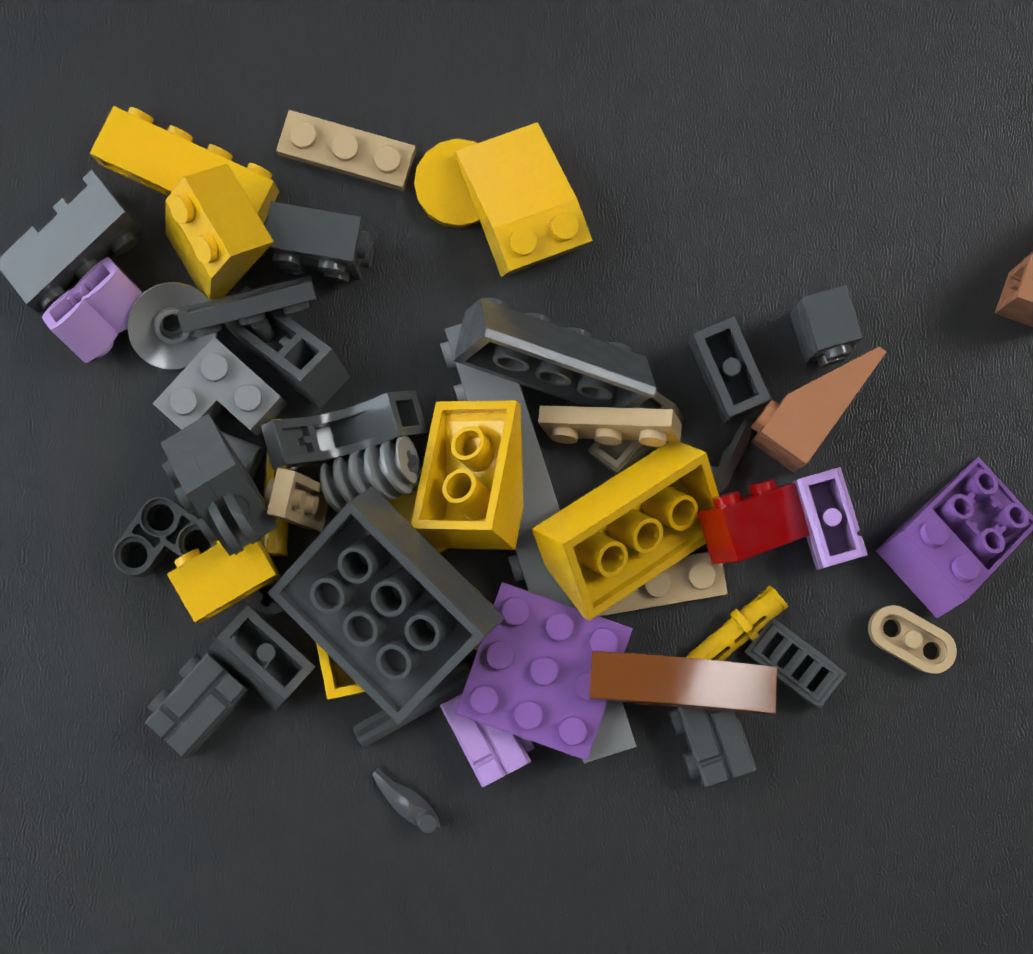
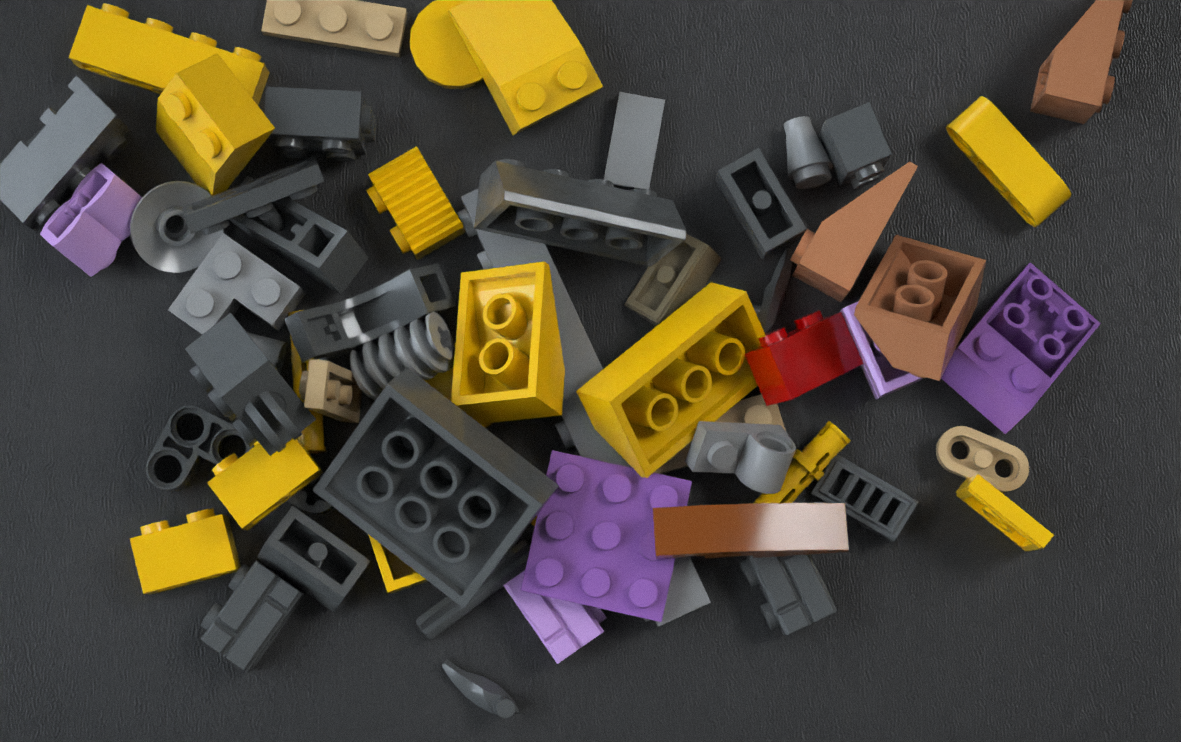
camera: 10 degrees left, 0 degrees up
(141, 636) = (185, 552): none -> yellow brick
(401, 331) = (415, 203): none -> yellow brick
(610, 424) = (644, 275): tan plate -> none
(615, 296) = (634, 141): none -> light grey tile
(693, 606) = (752, 451): none -> light grey plate
(777, 330) = (806, 157): none -> light grey cone
(872, 485) = (920, 304): none -> nougat slope
(928, 695) = (1003, 513): none -> yellow tile
(970, 358) = (1008, 161): none -> yellow beam

